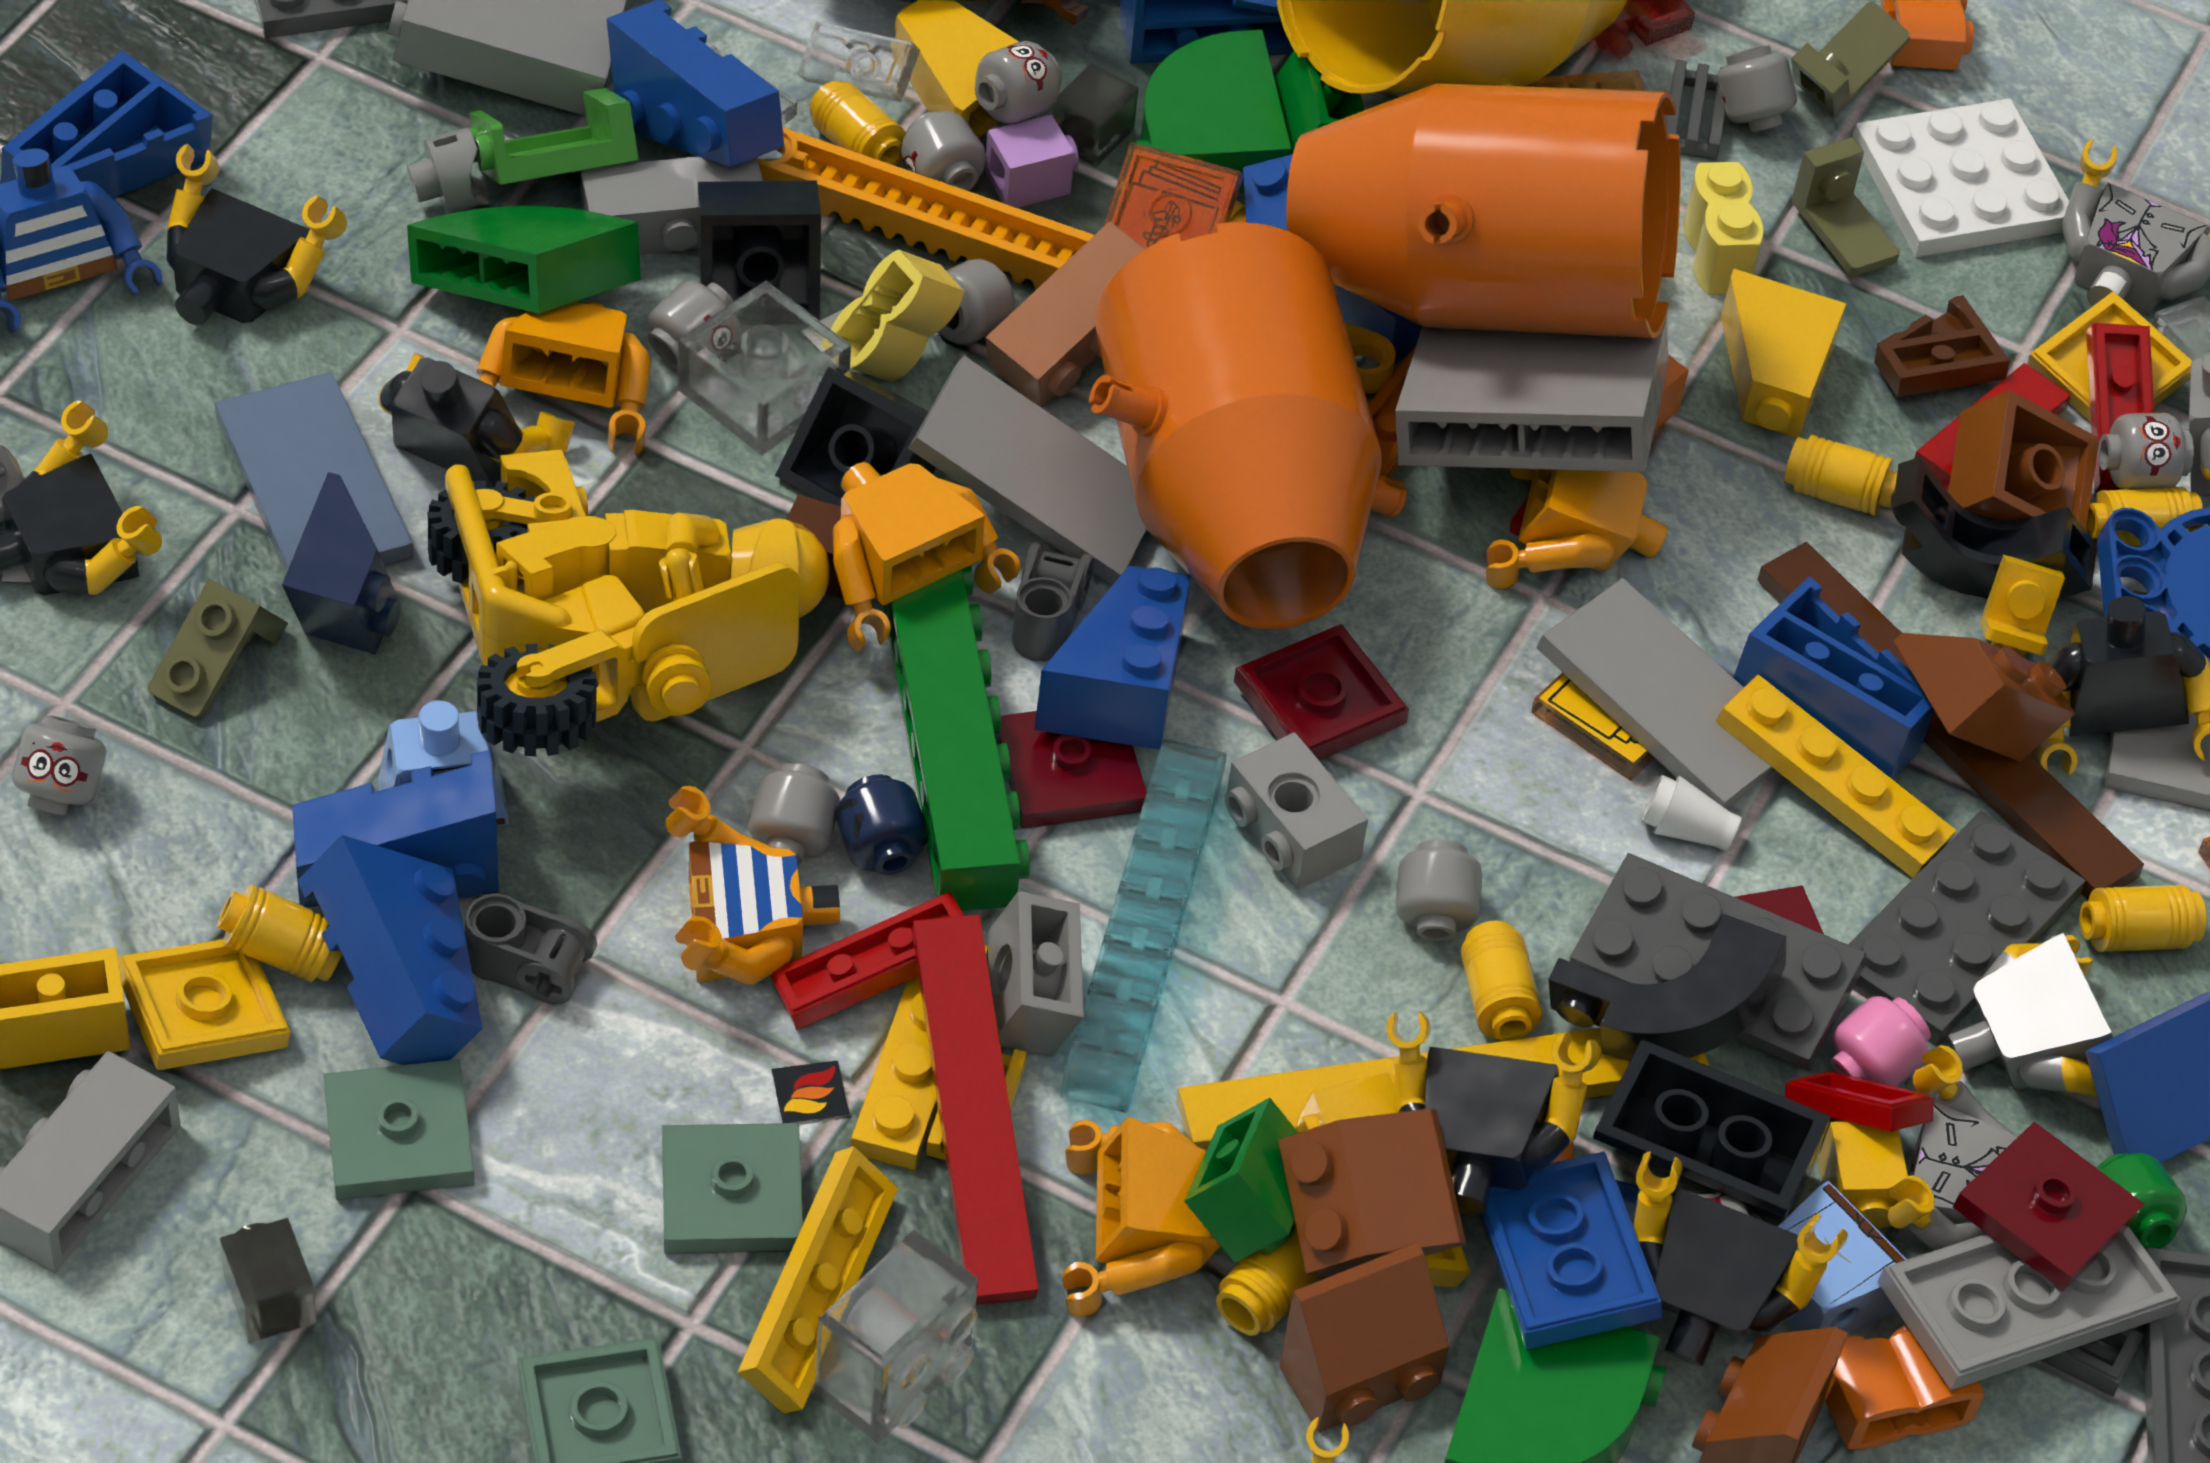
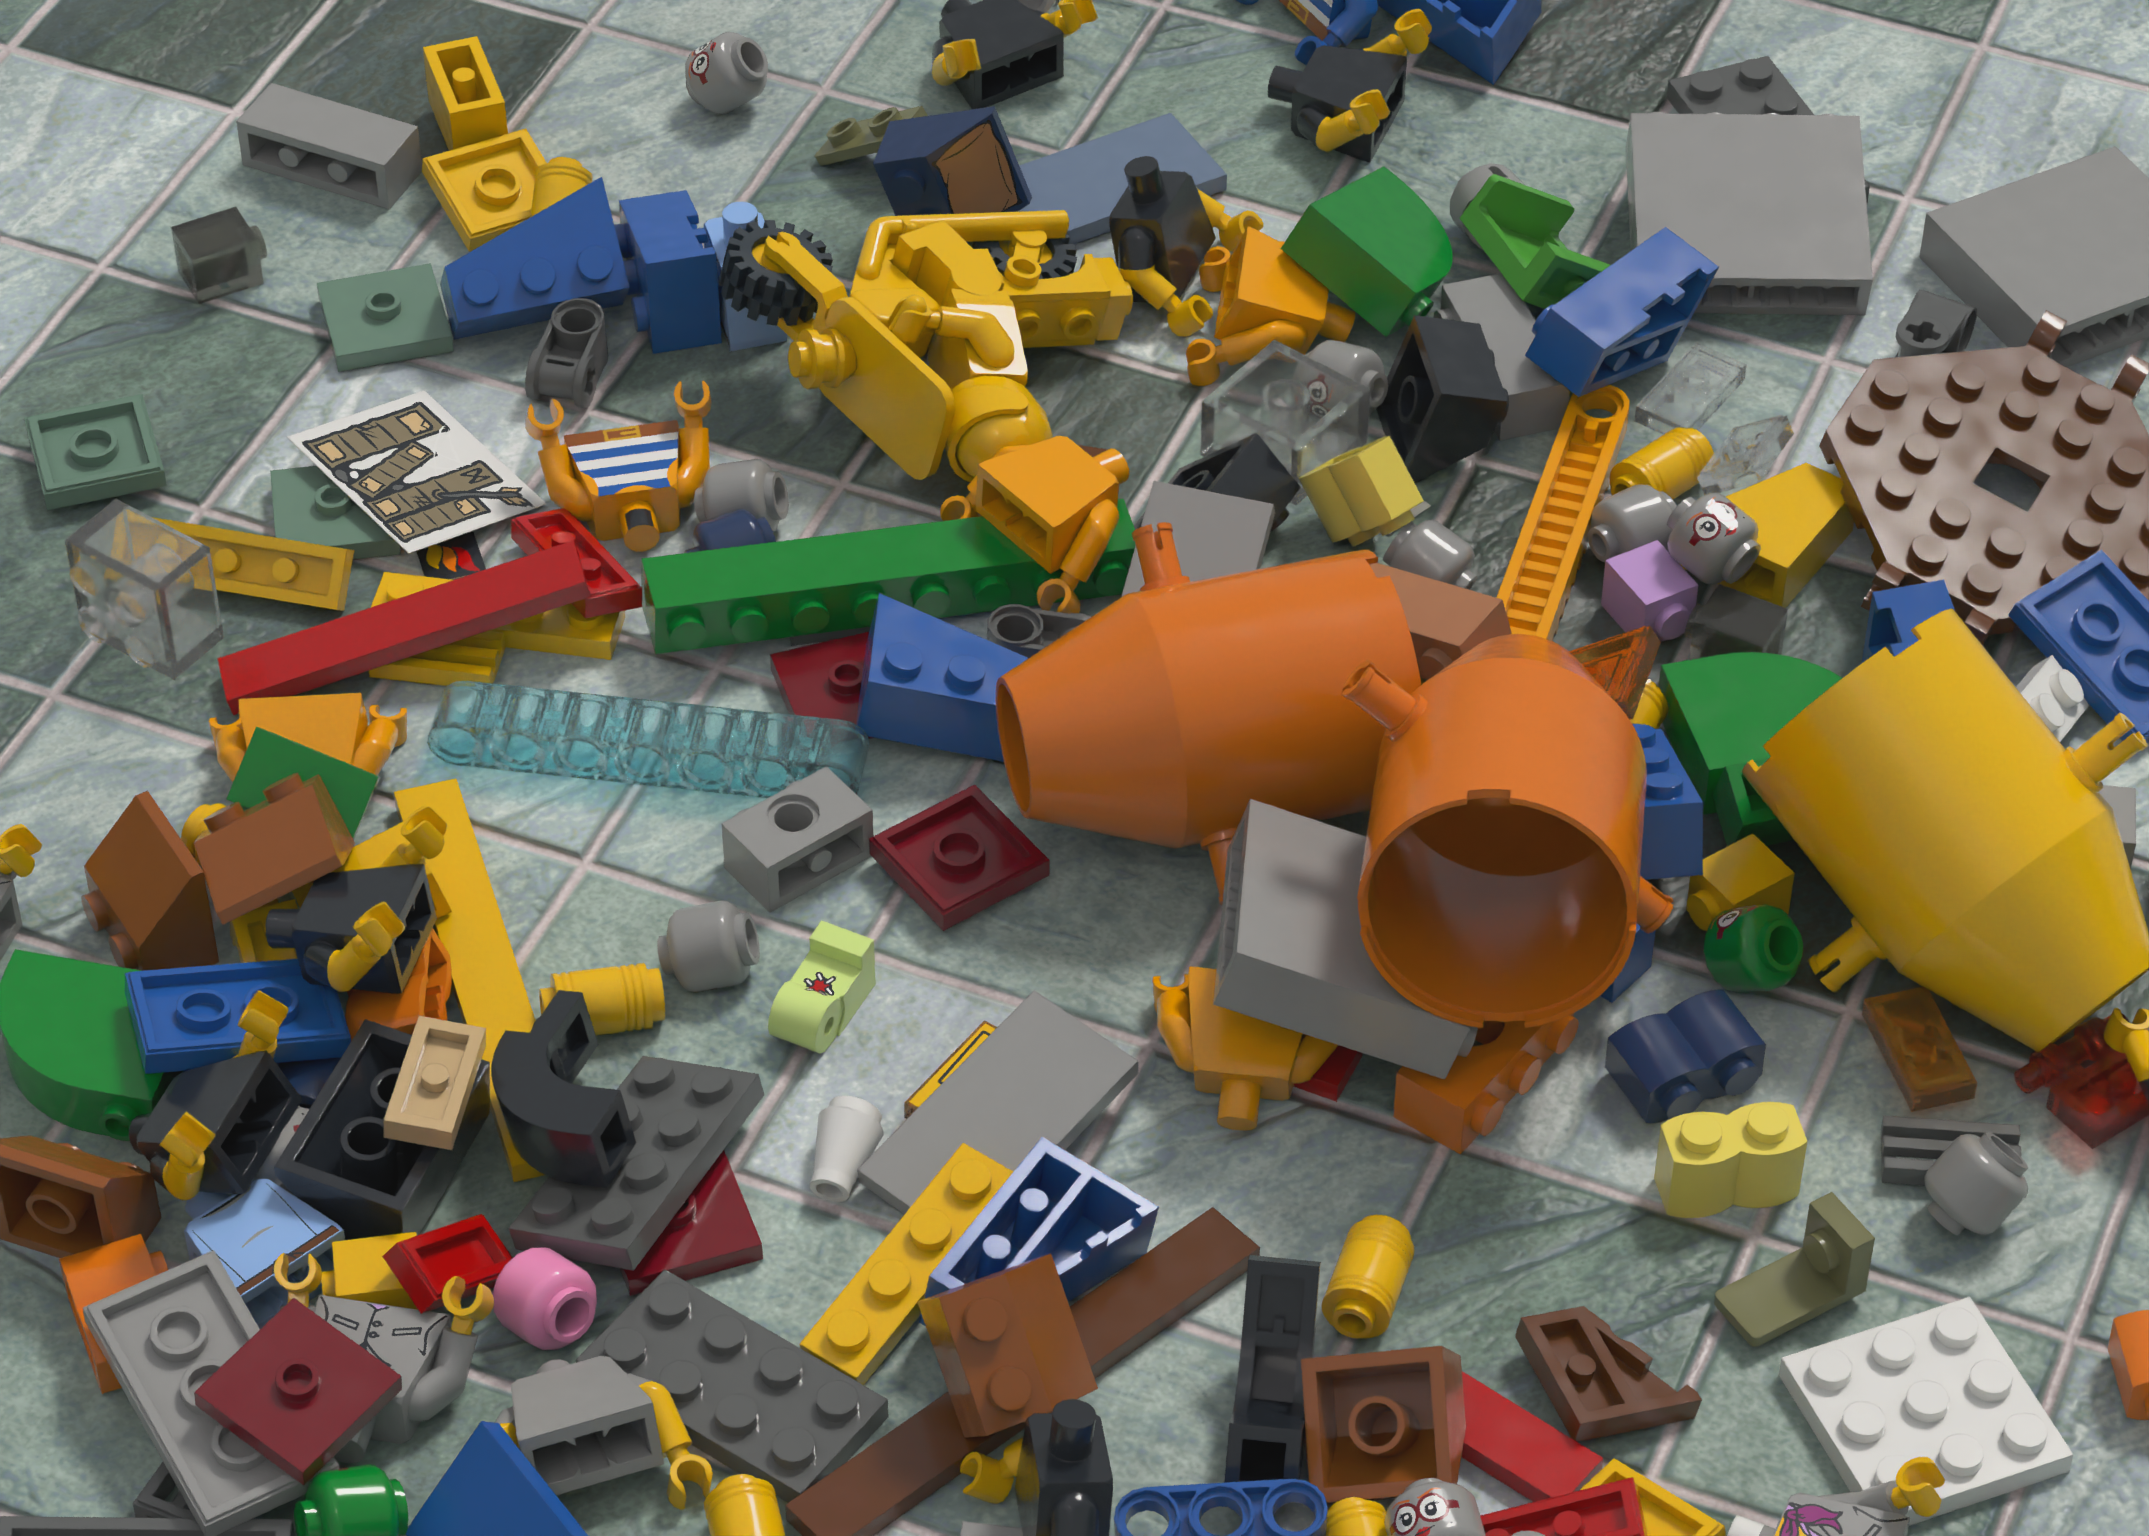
camera: 90 degrees right, 5 degrees down
(686, 1104) = (416, 471): none -> sticker
(1036, 972) = (561, 651): light grey brick -> none
(1496, 811) = (824, 988): none -> yellowish green leg
(1698, 1065) = (435, 1082): none -> tan plate
(1777, 348) = (1542, 1217): yellow slope -> none
(1849, 58) = (2037, 1273): olive bracket -> none
(2021, 605) = (1178, 1436): yellow bracket -> none

